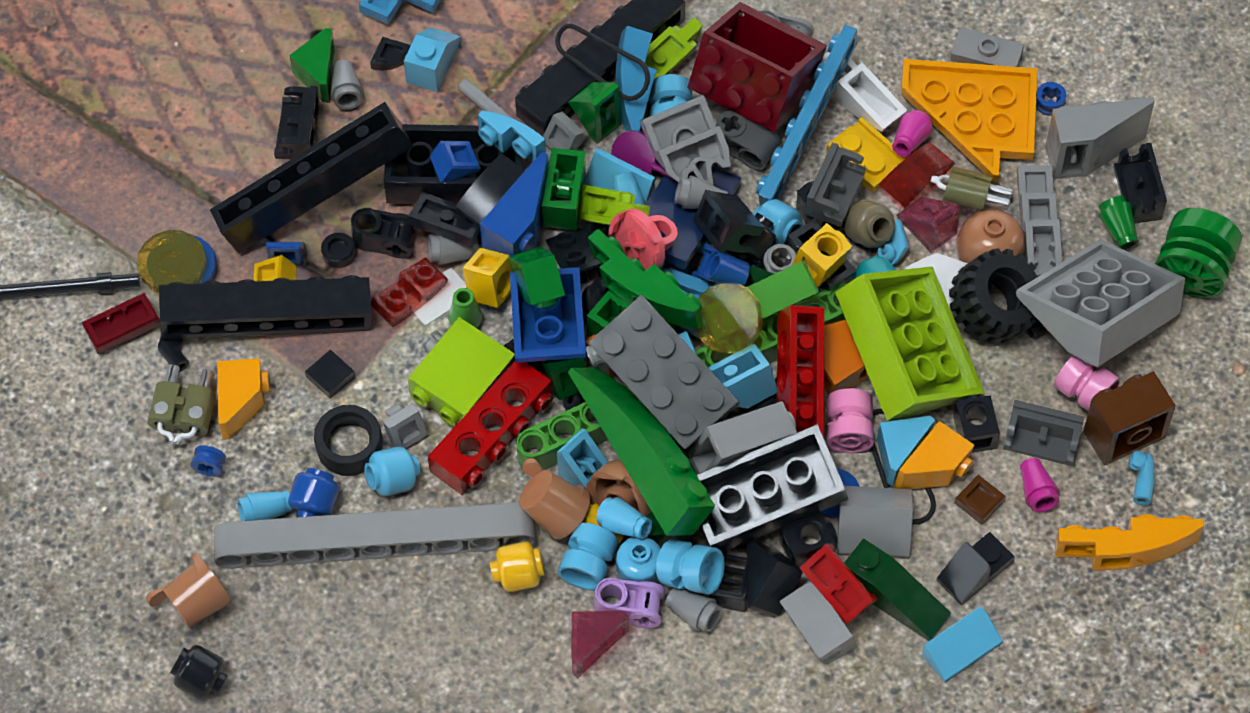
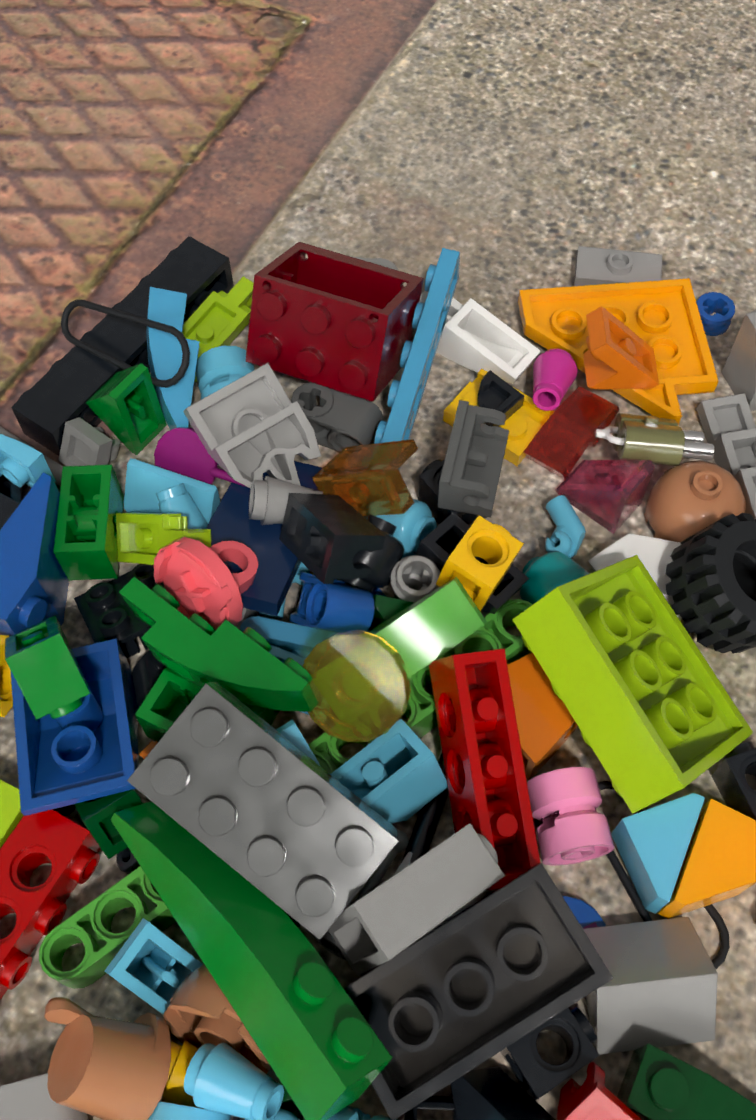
camera: 10 degrees left, 0 degrees up
(760, 186) = (369, 477): none -> clear orange panel
(866, 142) = (498, 395): none -> black tile
(869, 224) = (528, 507): dark tan head -> none
(960, 123) = (617, 355): none -> orange slope

